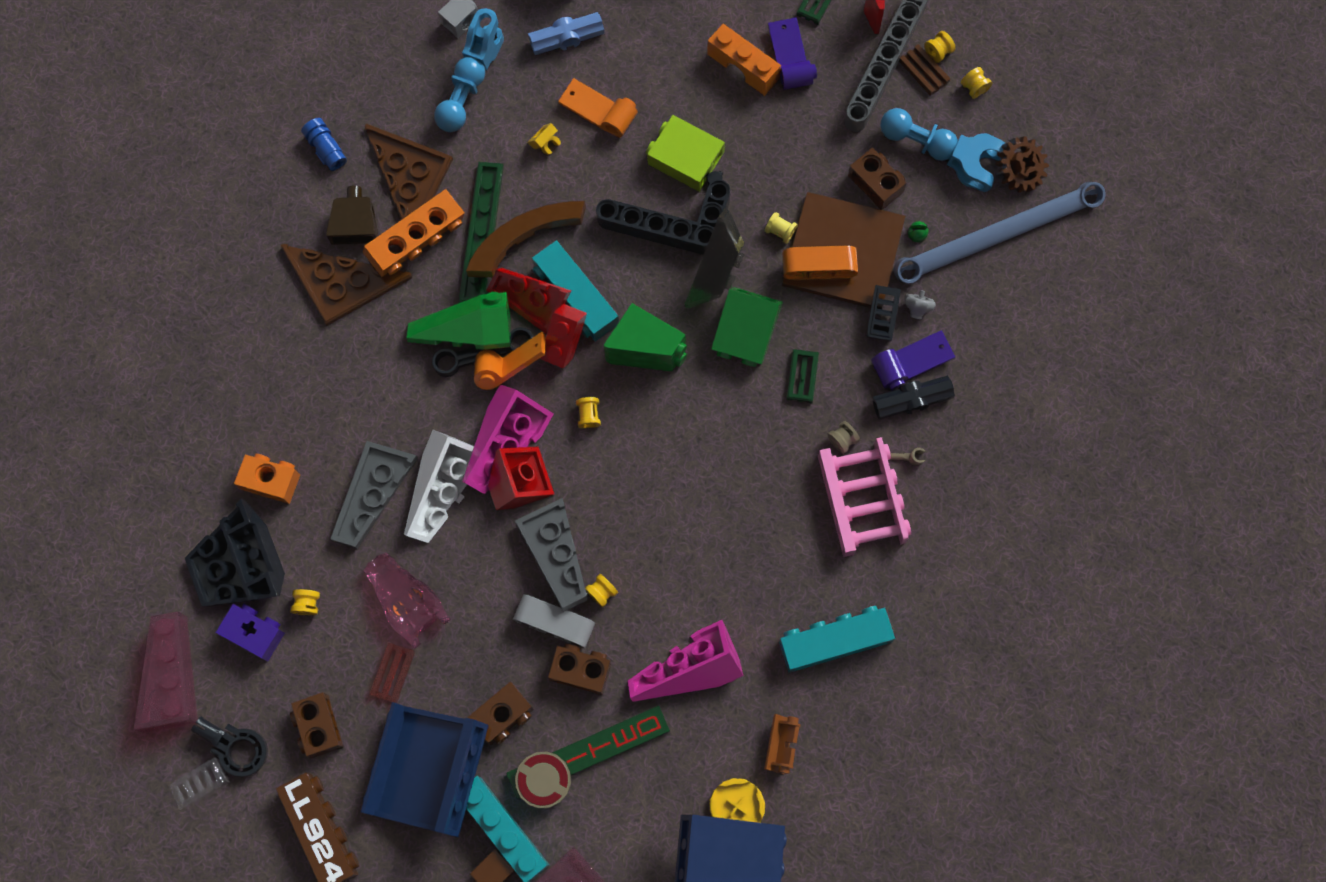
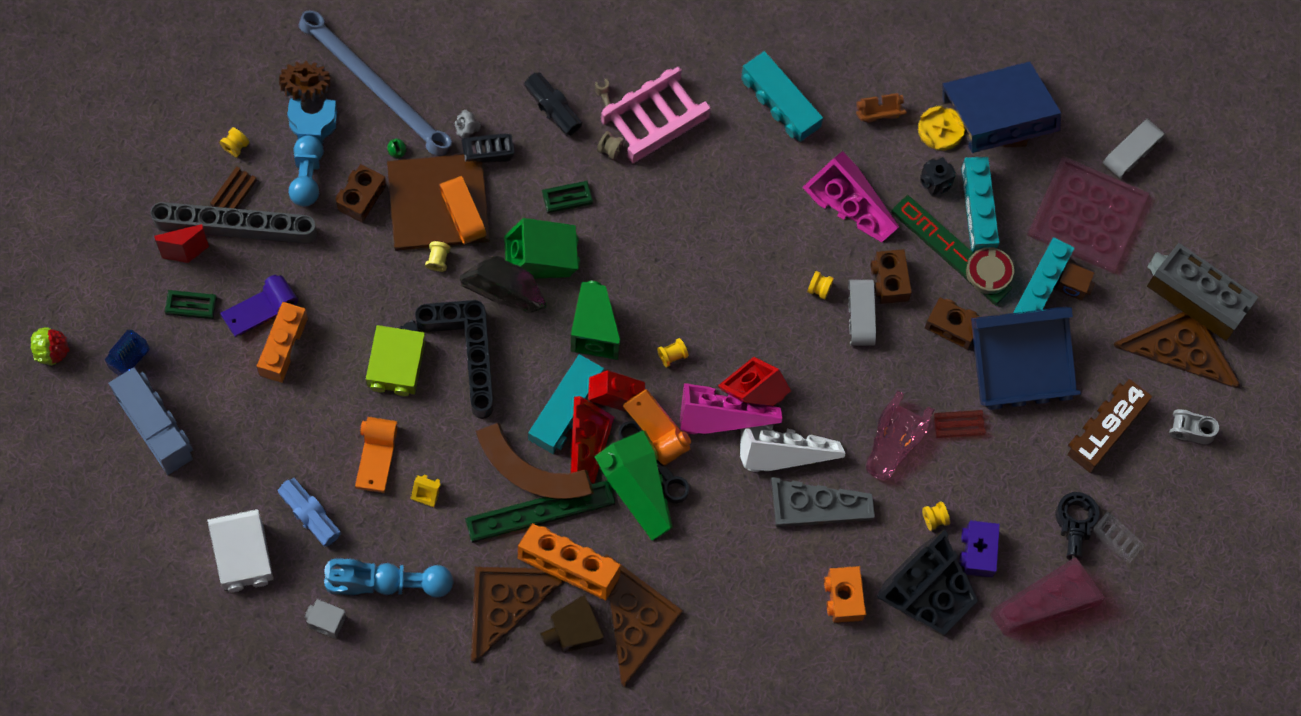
camera: 120 degrees left, 5 degrees down
(323, 722) = (1026, 459): reddish brown brick -> none
(326, 147) = (509, 686): blue axle -> none
(553, 549) = (804, 333): dark grey wing -> none
(623, 803) = (979, 203): none -> teal brick
(679, 782) = (937, 176): none -> black brick
(915, 359) = (519, 116): dark purple door -> none
(939, 46) = (207, 183): yellow wheel -> none

